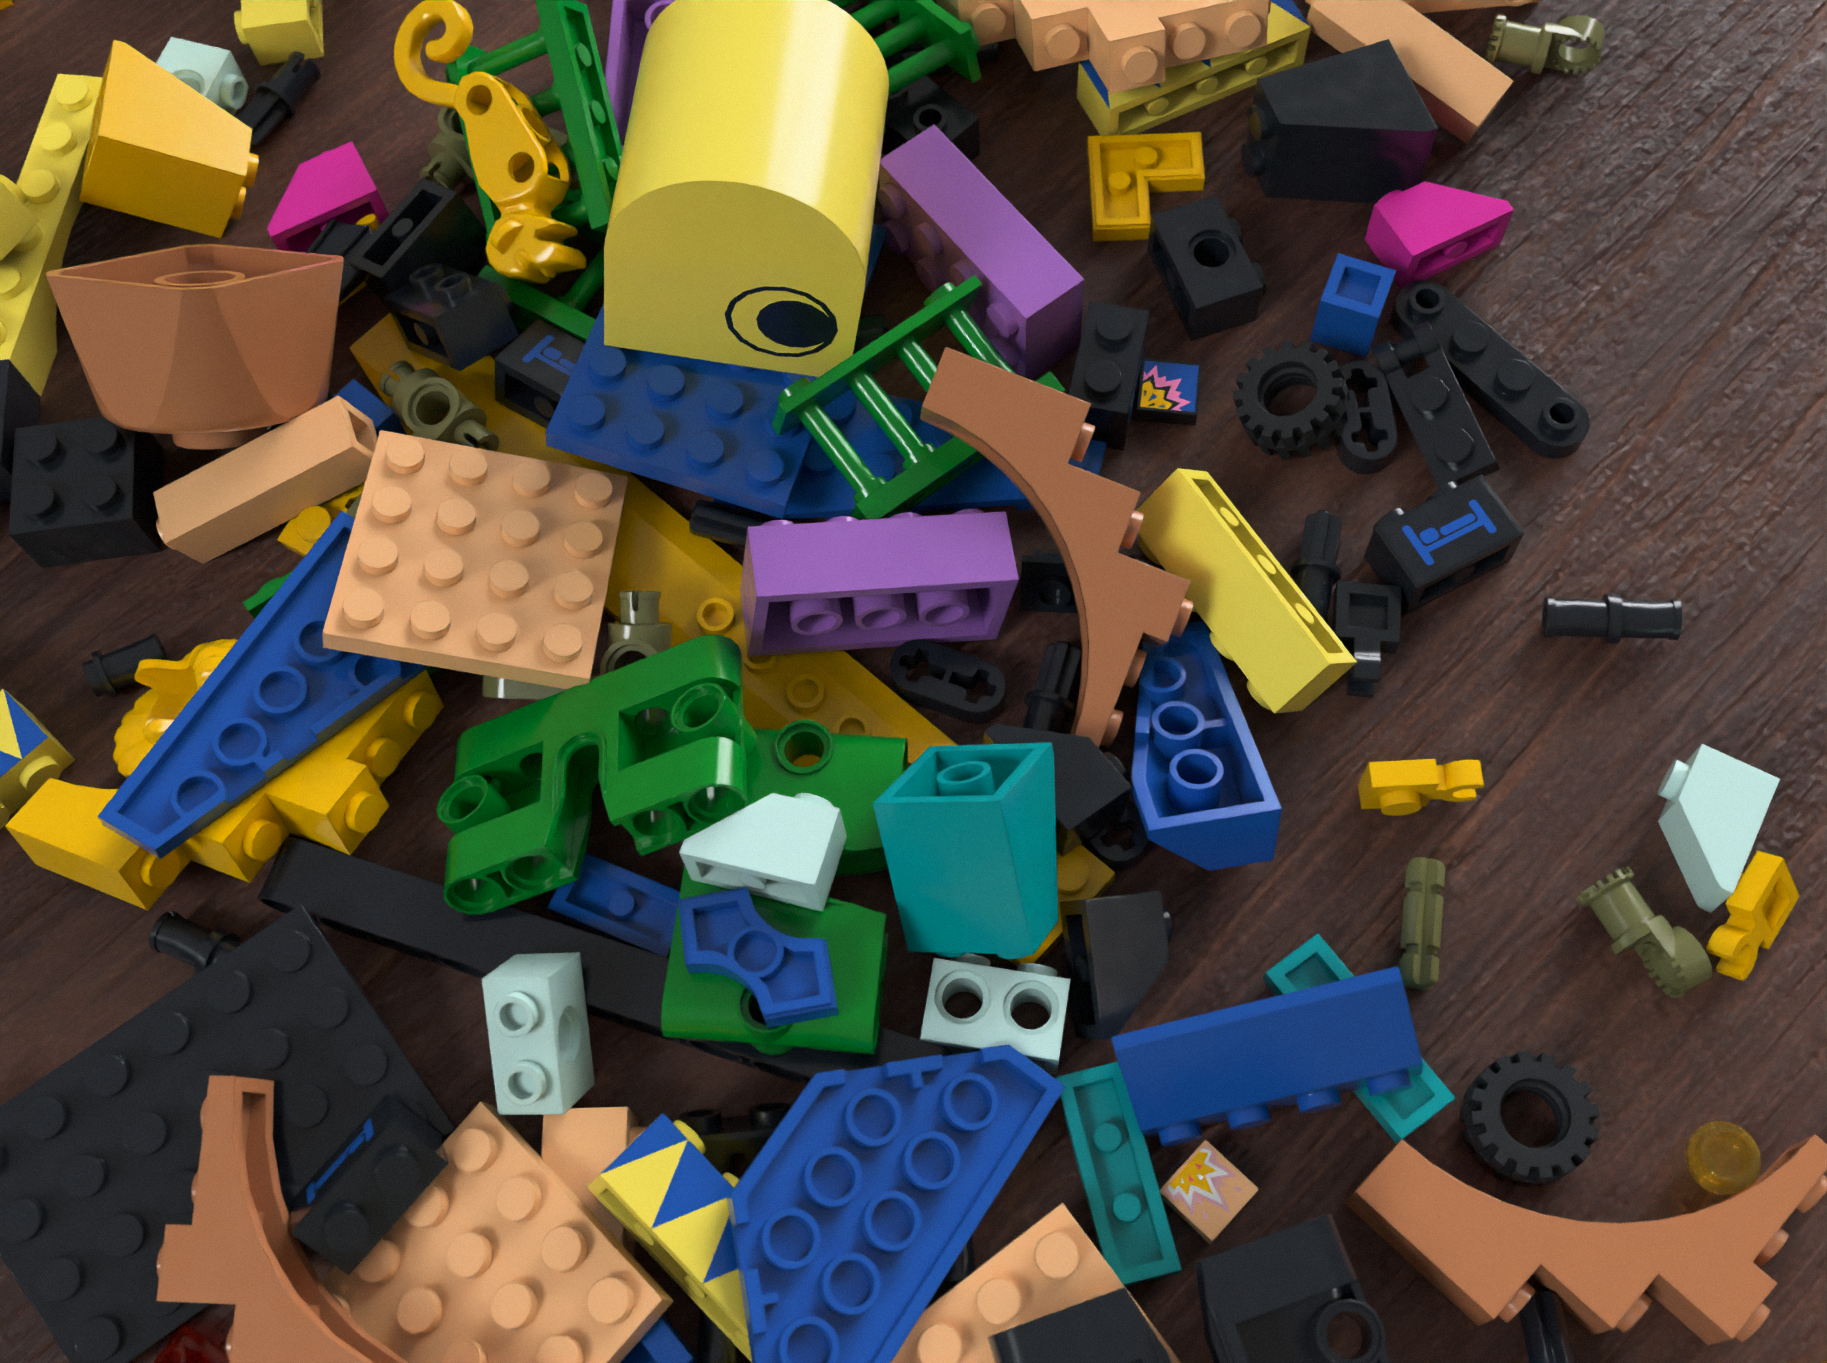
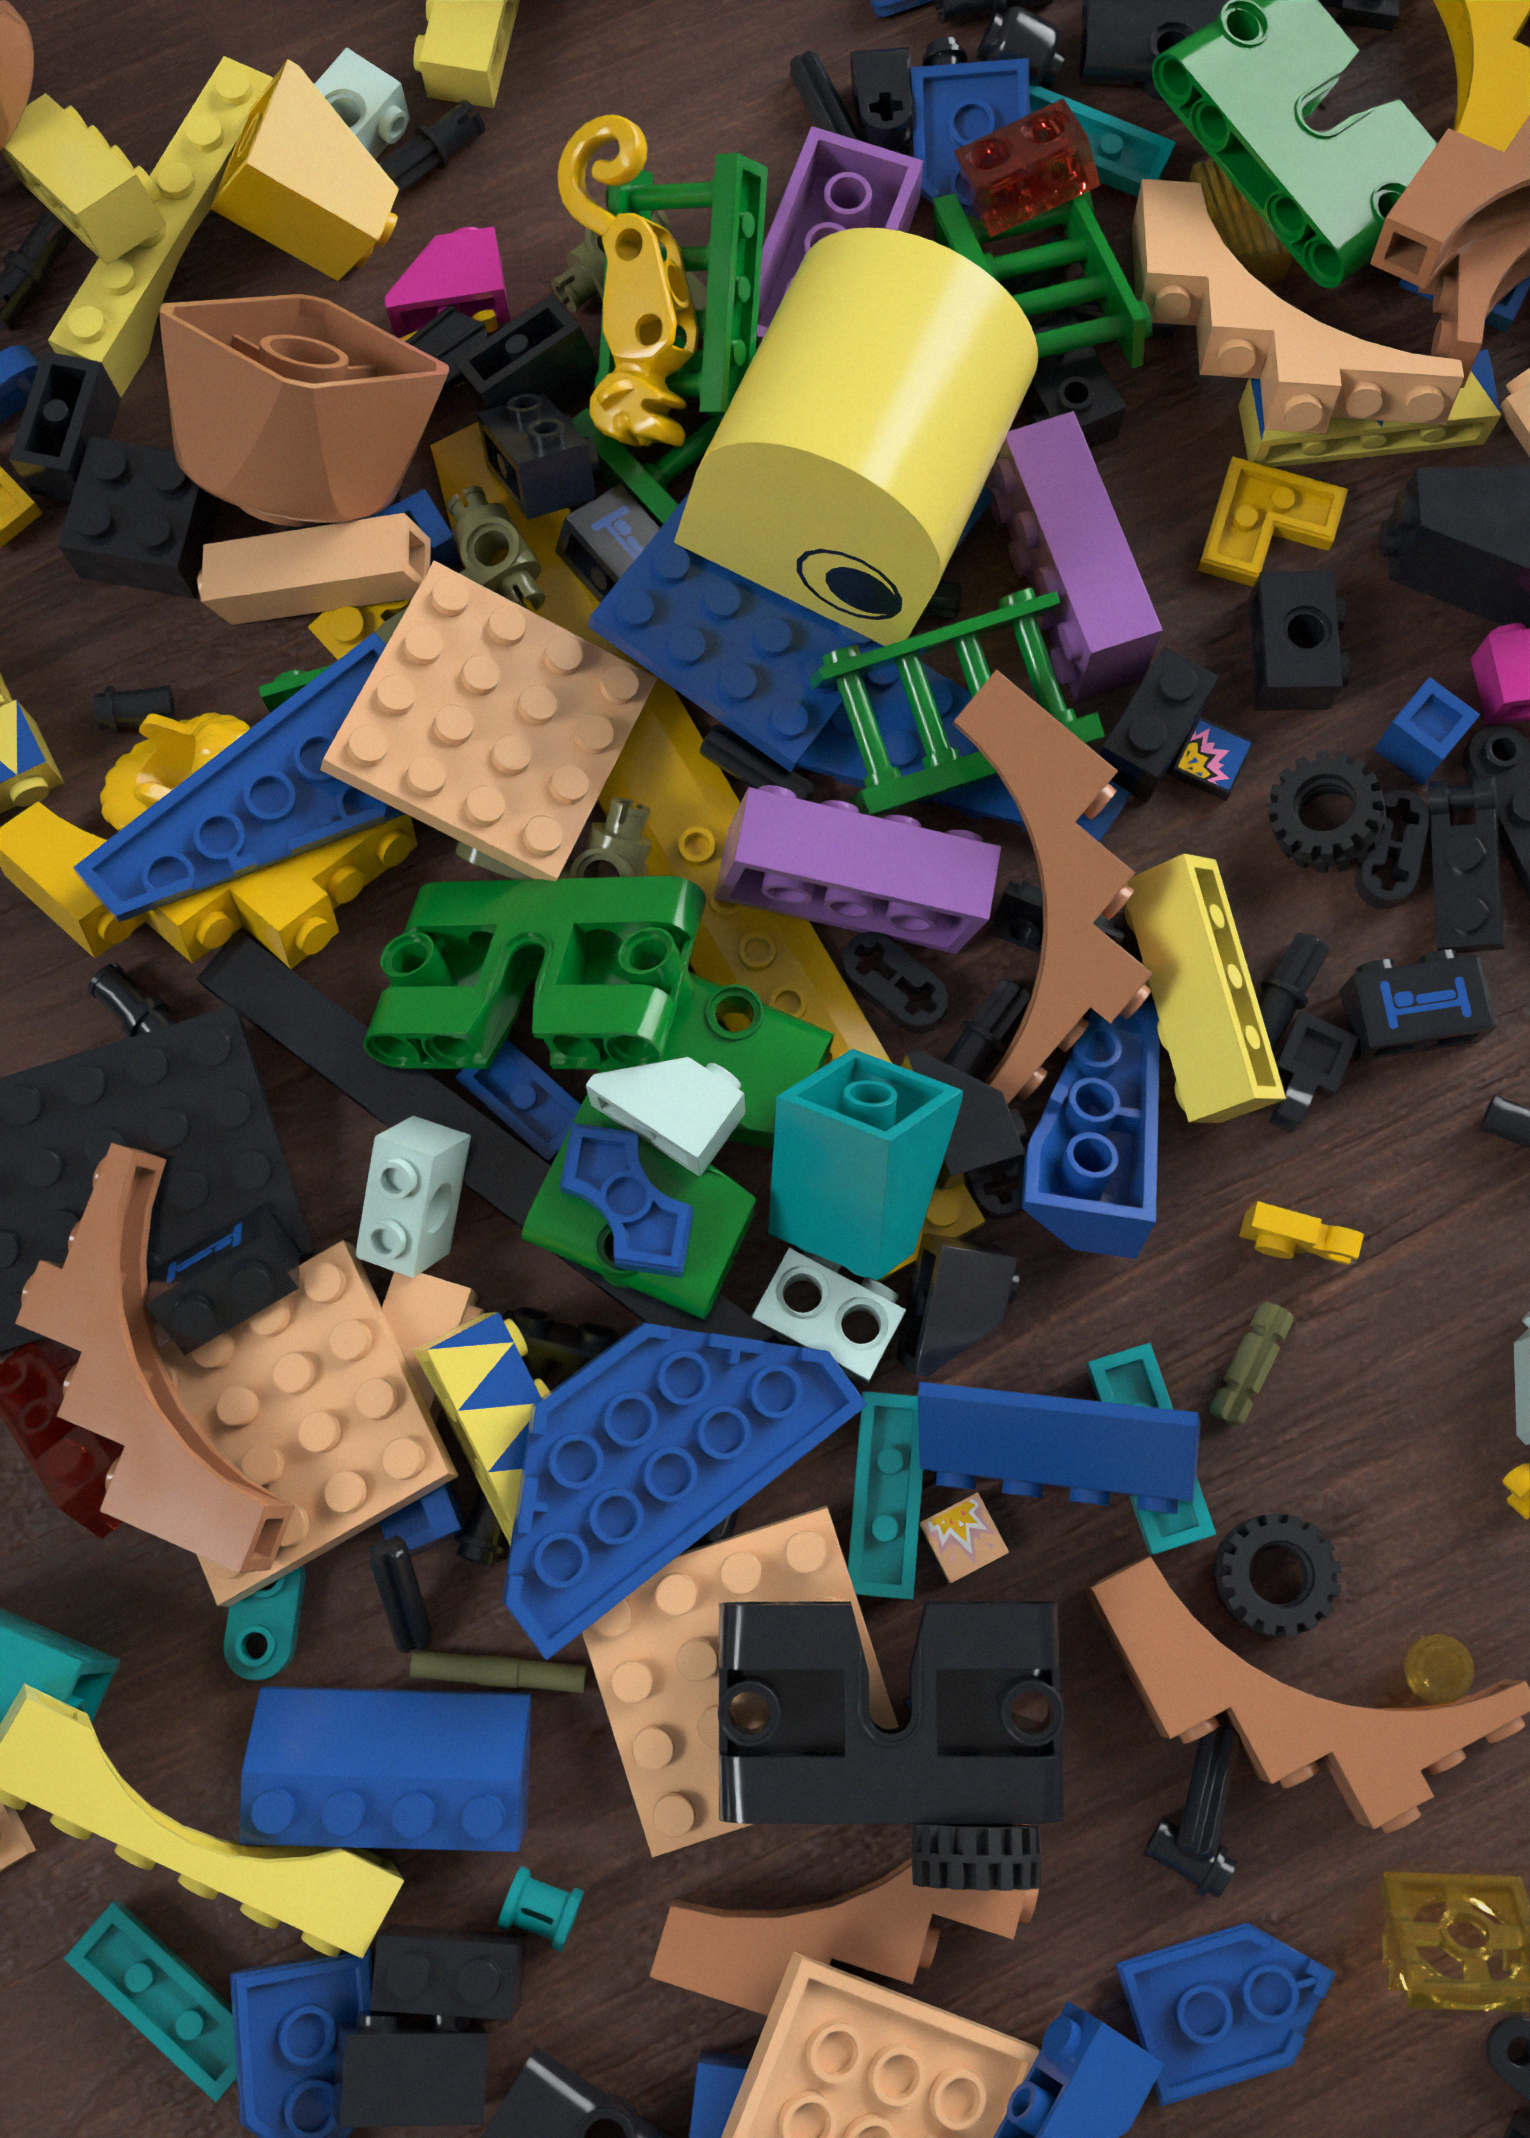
camera: 15 degrees right, 10 degrees up
(1665, 950) = (1446, 1432): olive connector -> none

